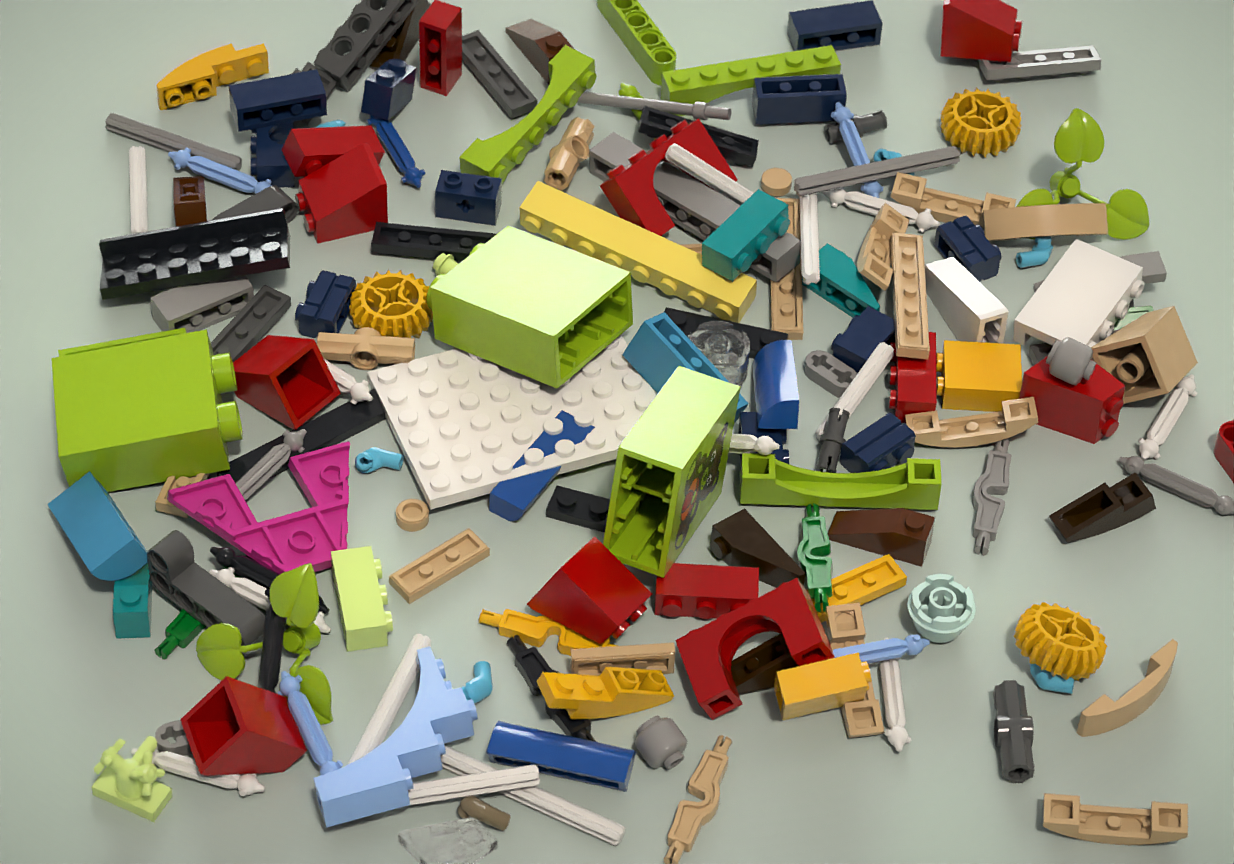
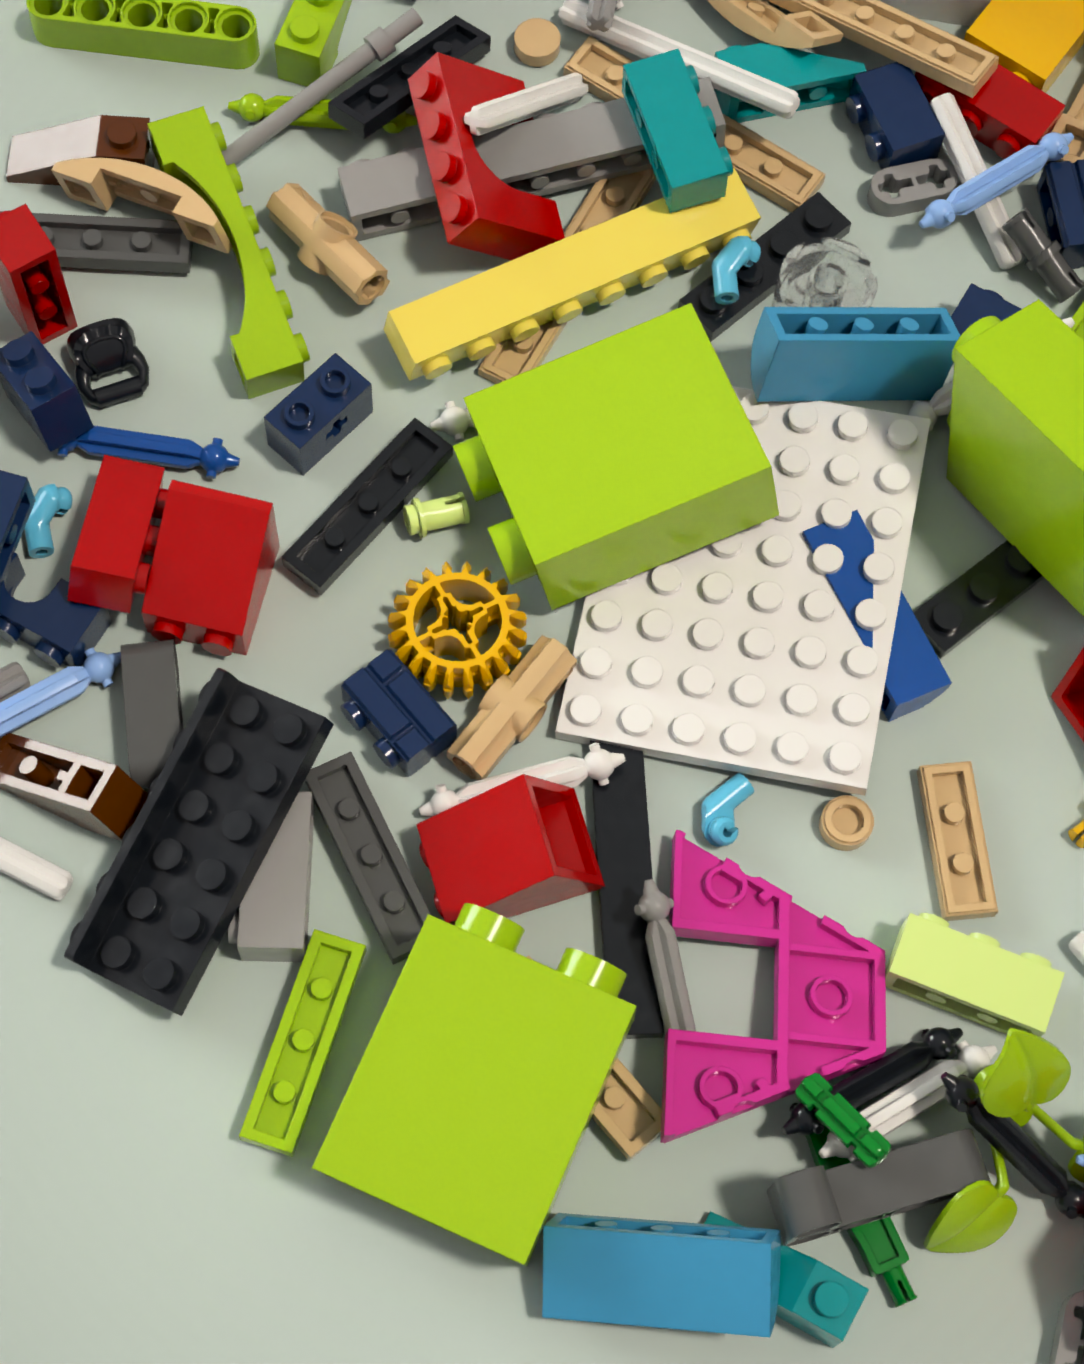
camera: 60 degrees left, 20 degrees up
(229, 558) = (843, 1120): none -> green axle
(436, 105) = (104, 349): none -> black piece
(530, 59) = (103, 179): none -> tan slope
(696, 308) = (736, 253): none -> medium azure arm
(776, 386) = (937, 258): blue brick -> none
(856, 393) = (996, 180): none -> light blue wheel

